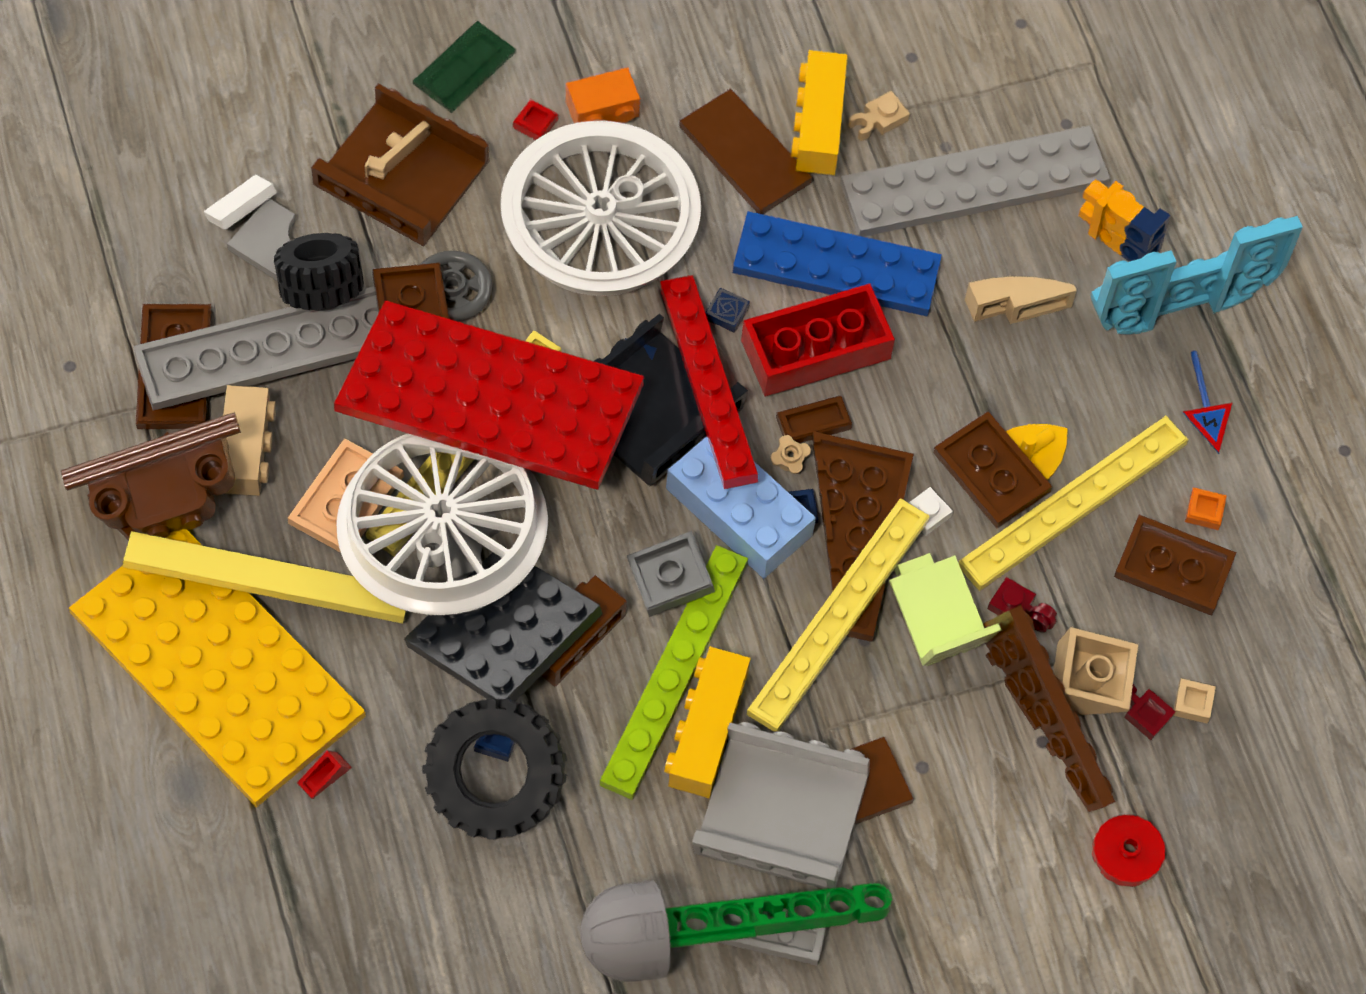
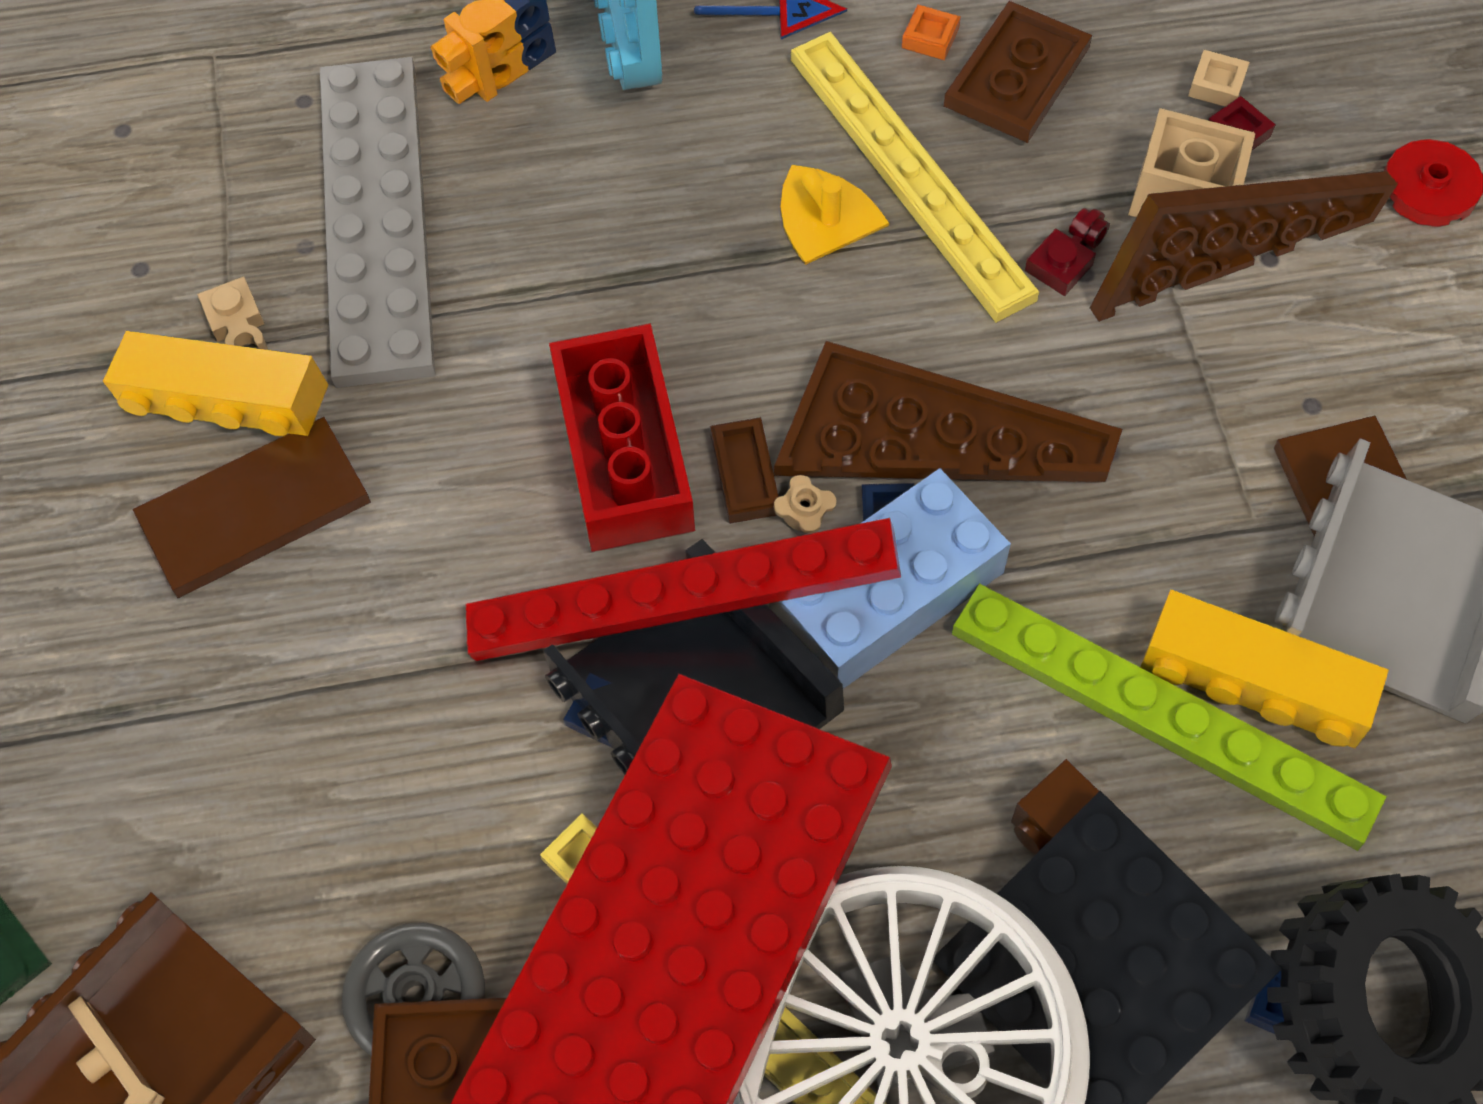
camera: 75 degrees left, 0 degrees up
(535, 120) = (109, 819): red tile -> none
(600, 210) = (266, 610): white piece -> none
(603, 97) = (104, 702): orange brick -> none
(670, 573) = (1005, 695): tile -> none
(727, 310) = (534, 563): dark blue tile -> none
(836, 262) = (475, 411): blue plate -> none
(837, 616) = (1098, 469): light yellow tile -> none
(933, 506) = (911, 341): white plate -> none
(939, 608) = (1120, 326): yellowish green piece -> none
(992, 469) = (856, 252): reddish brown plate -> none
(1018, 297) = (584, 187): tan slope -> none

